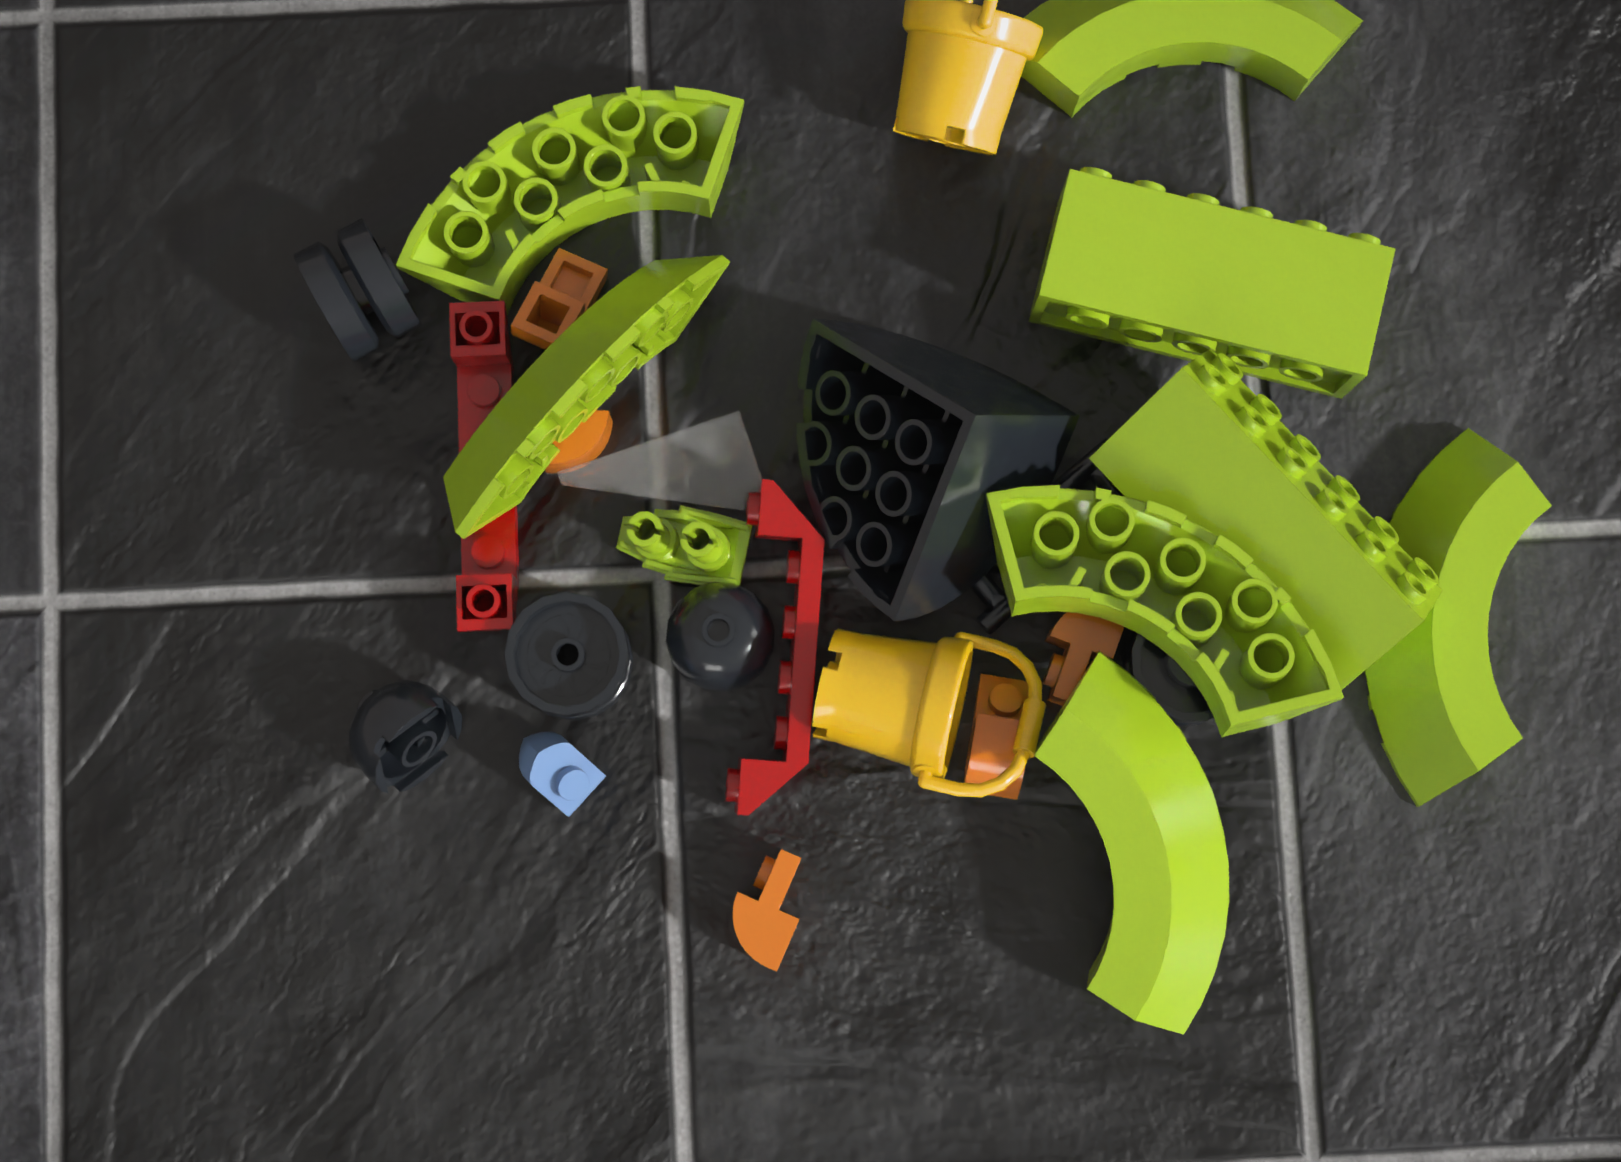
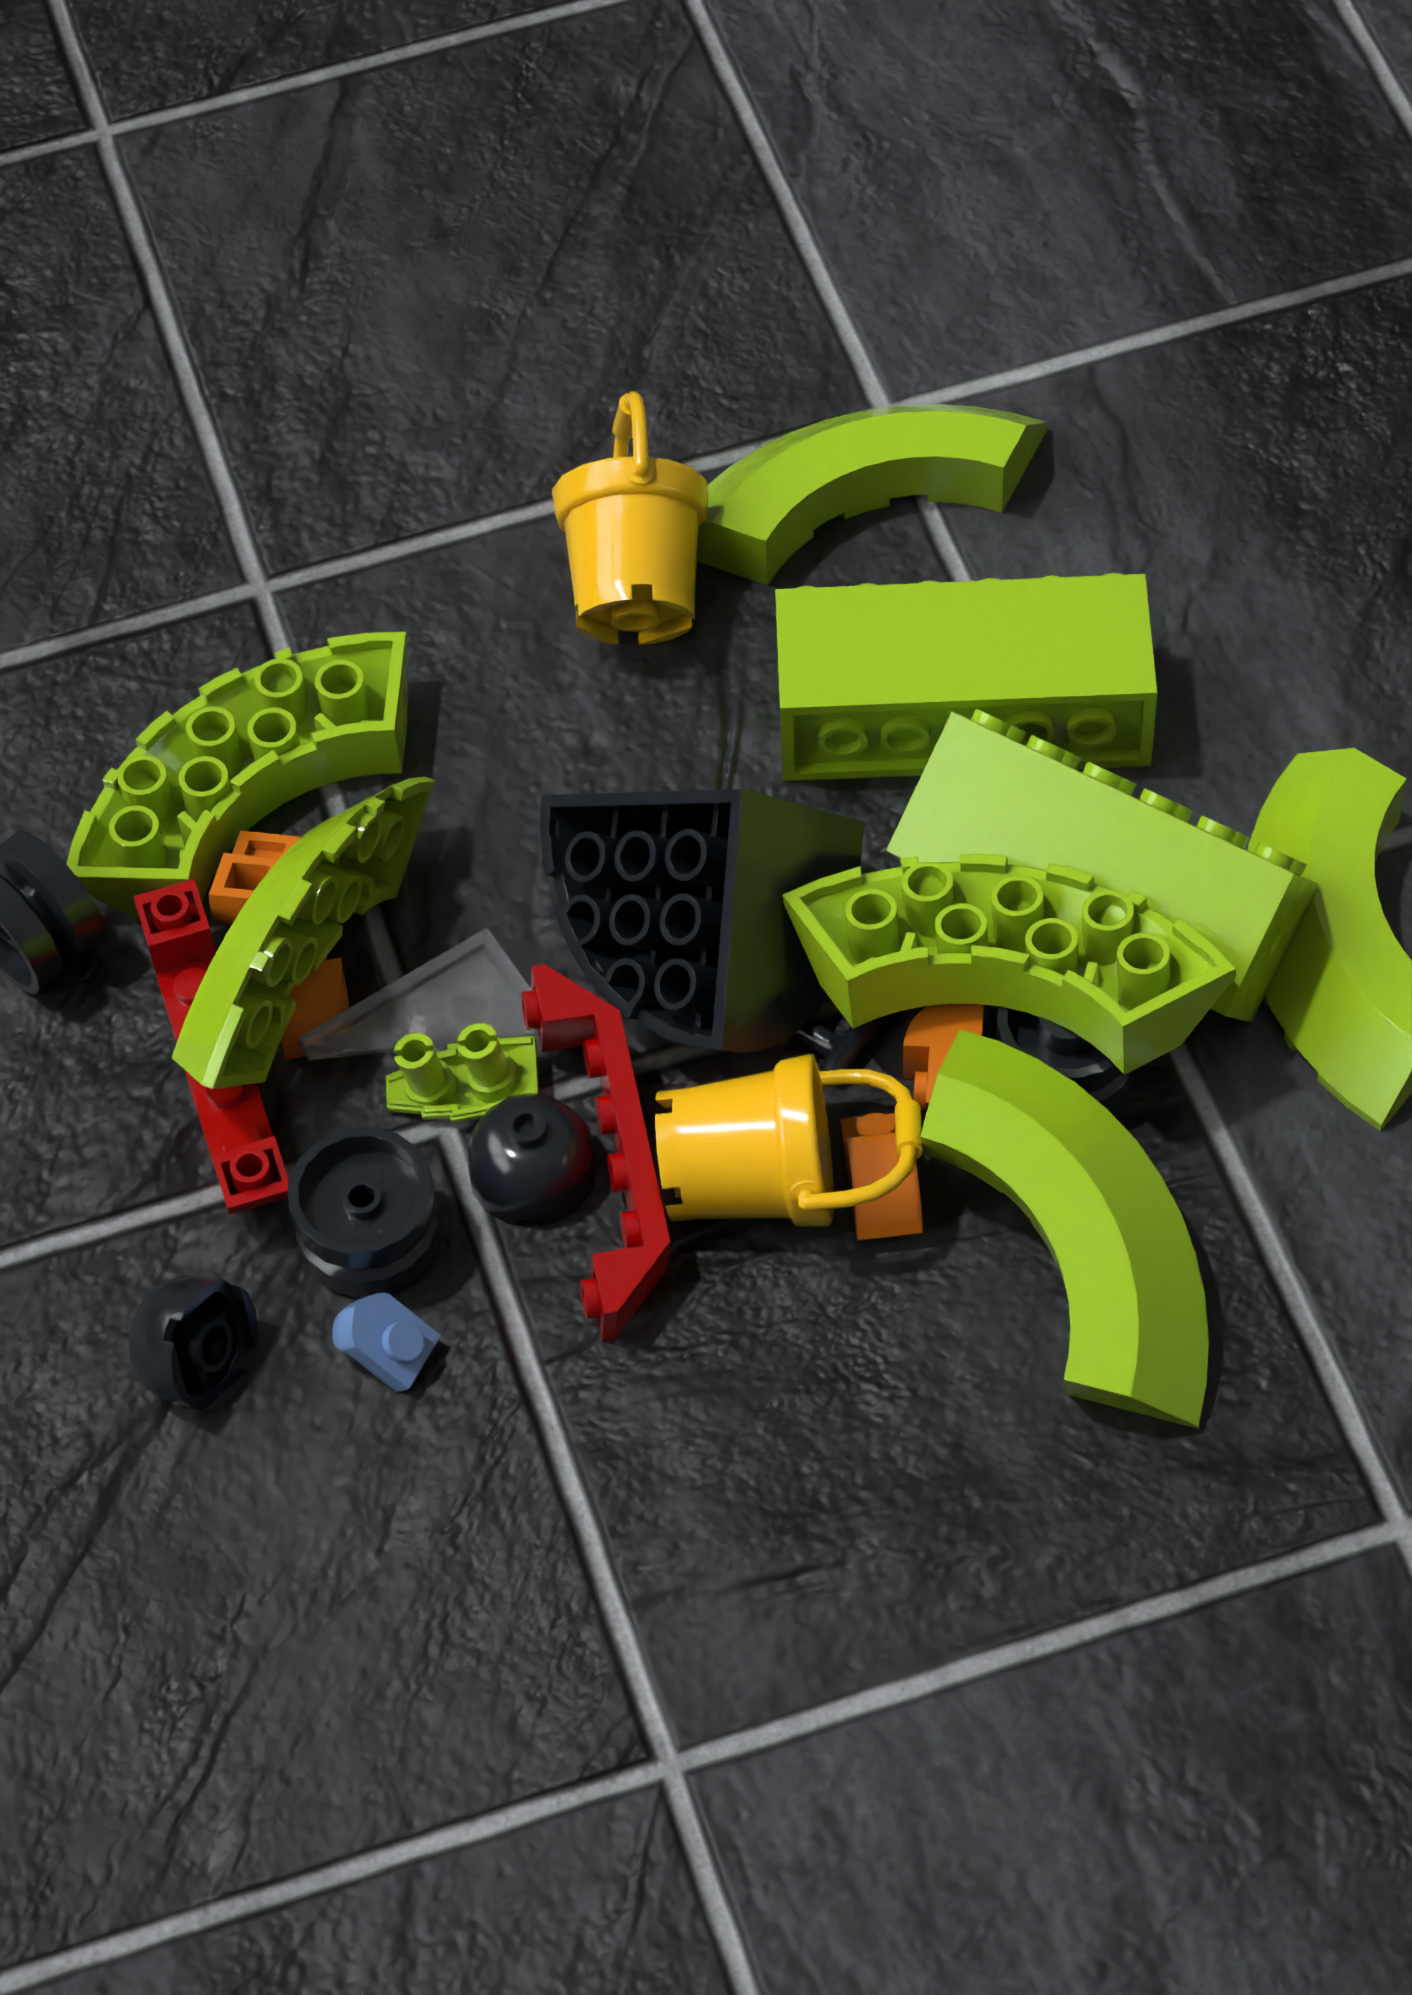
camera: 10 degrees left, 25 degrees down
(759, 923) = (667, 1426): orange brick -> none

